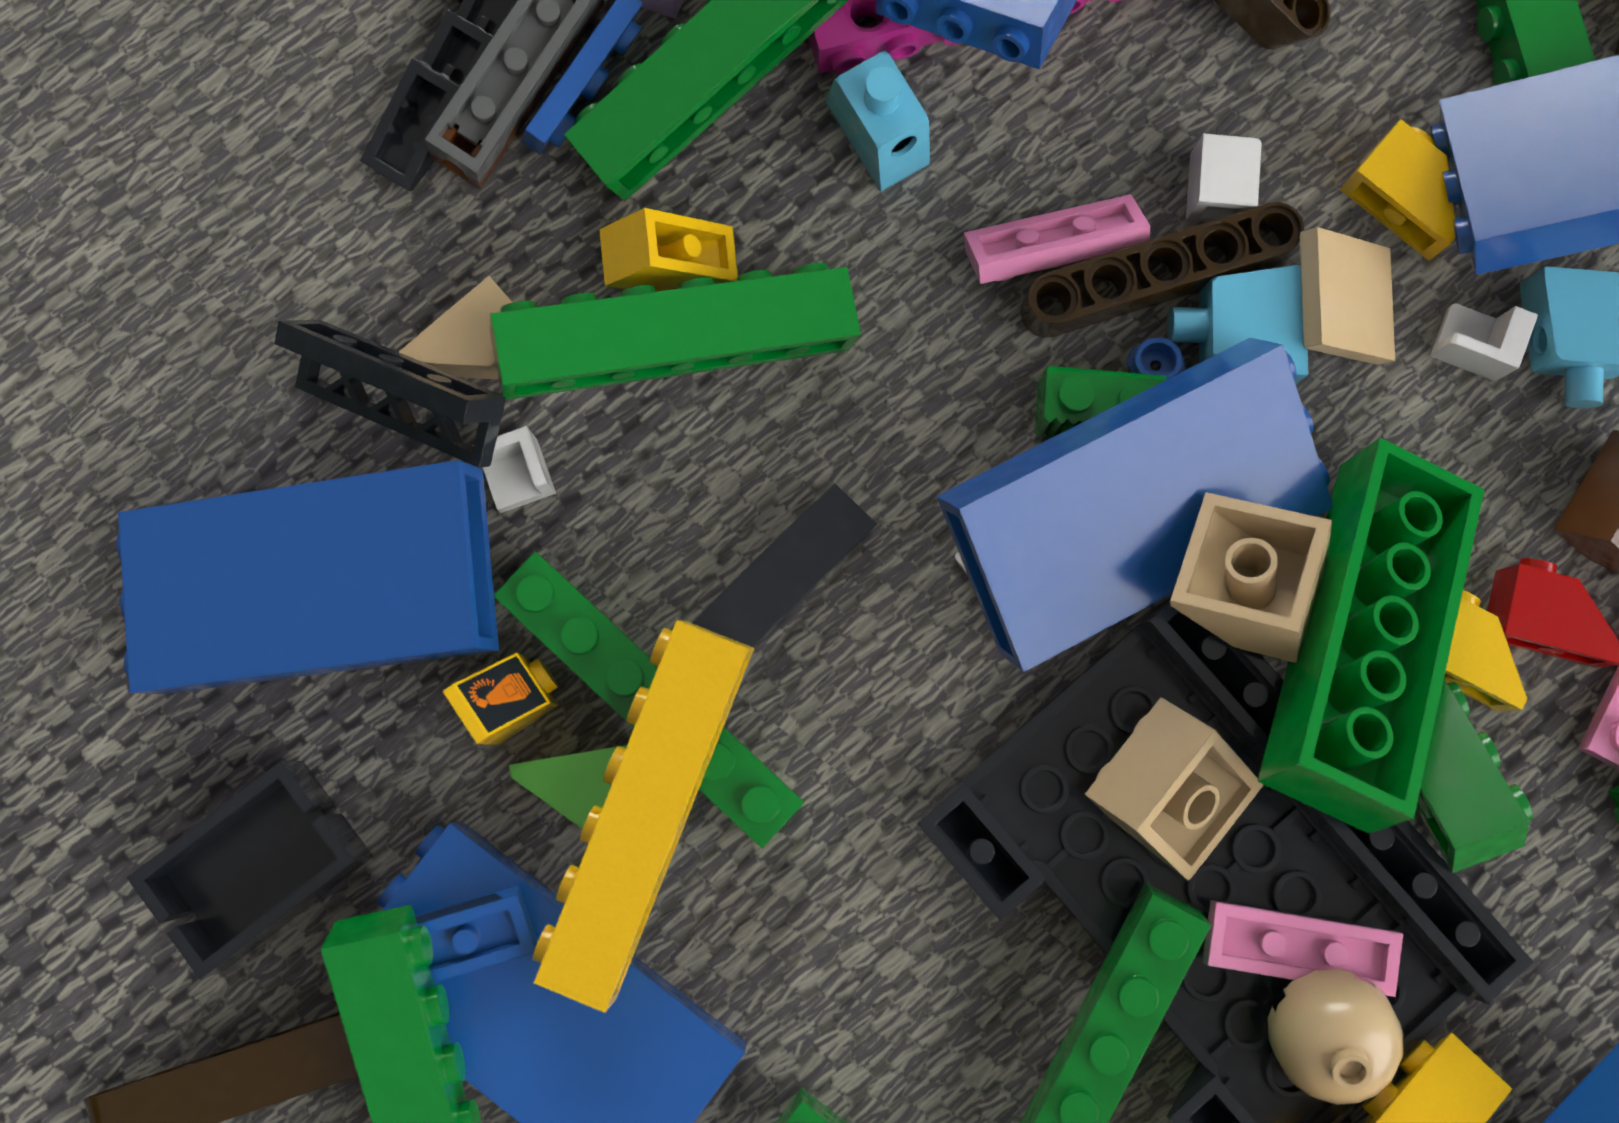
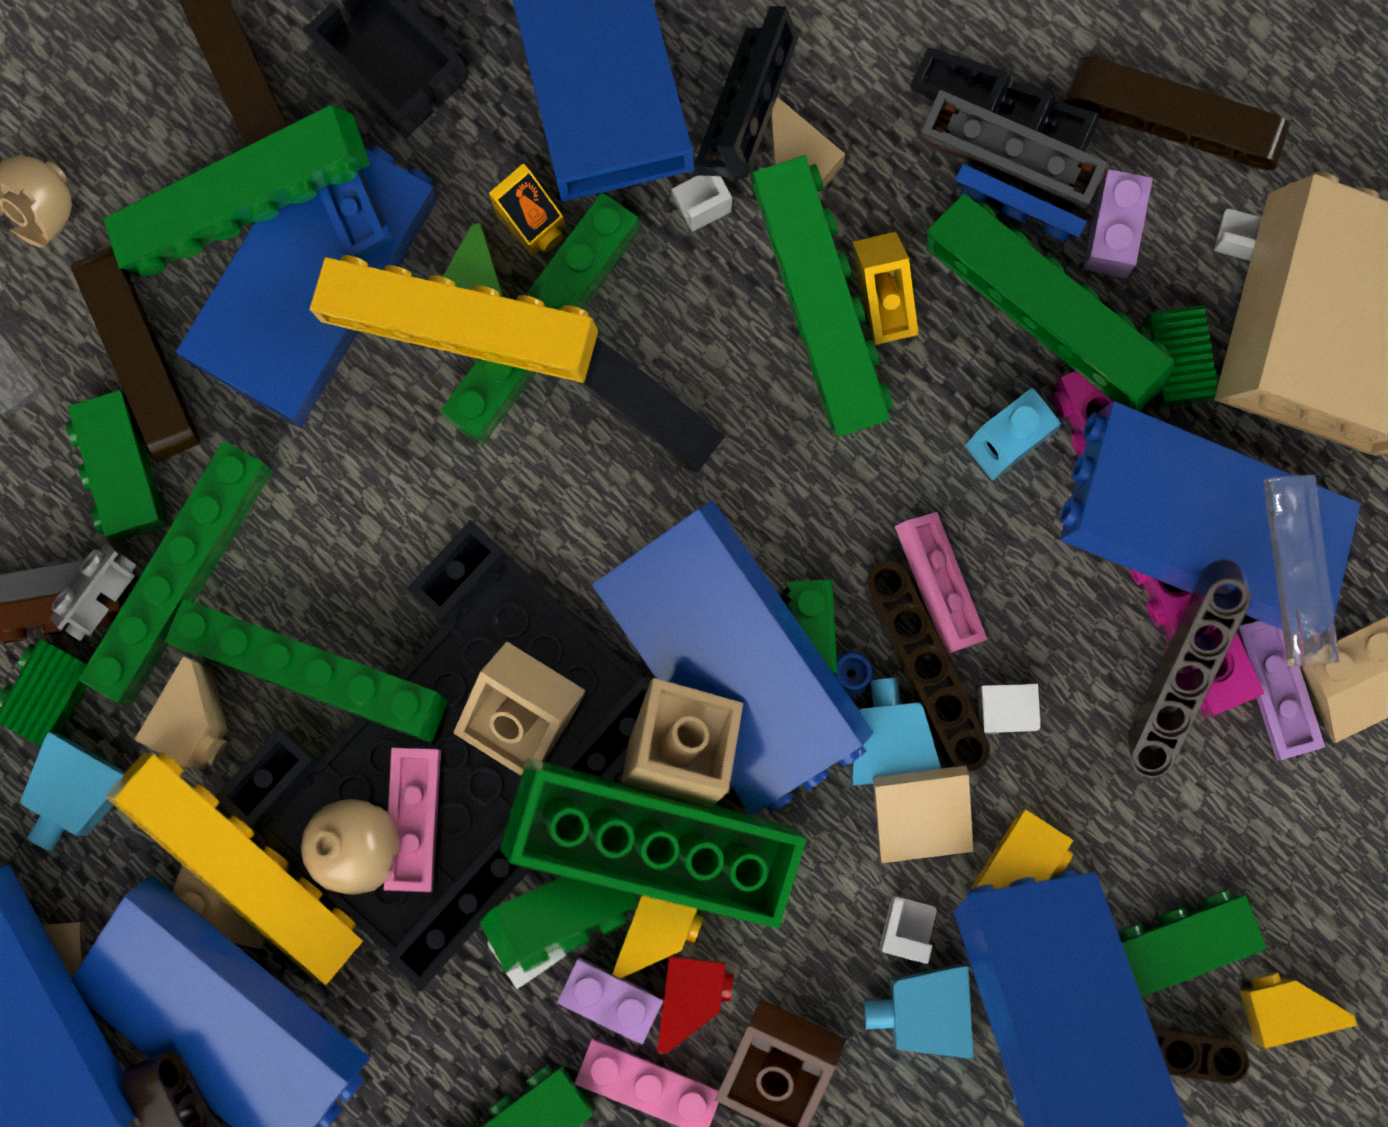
camera: 90 degrees right, 0 degrees up
(1559, 711) = (610, 1000): none -> lavender brick

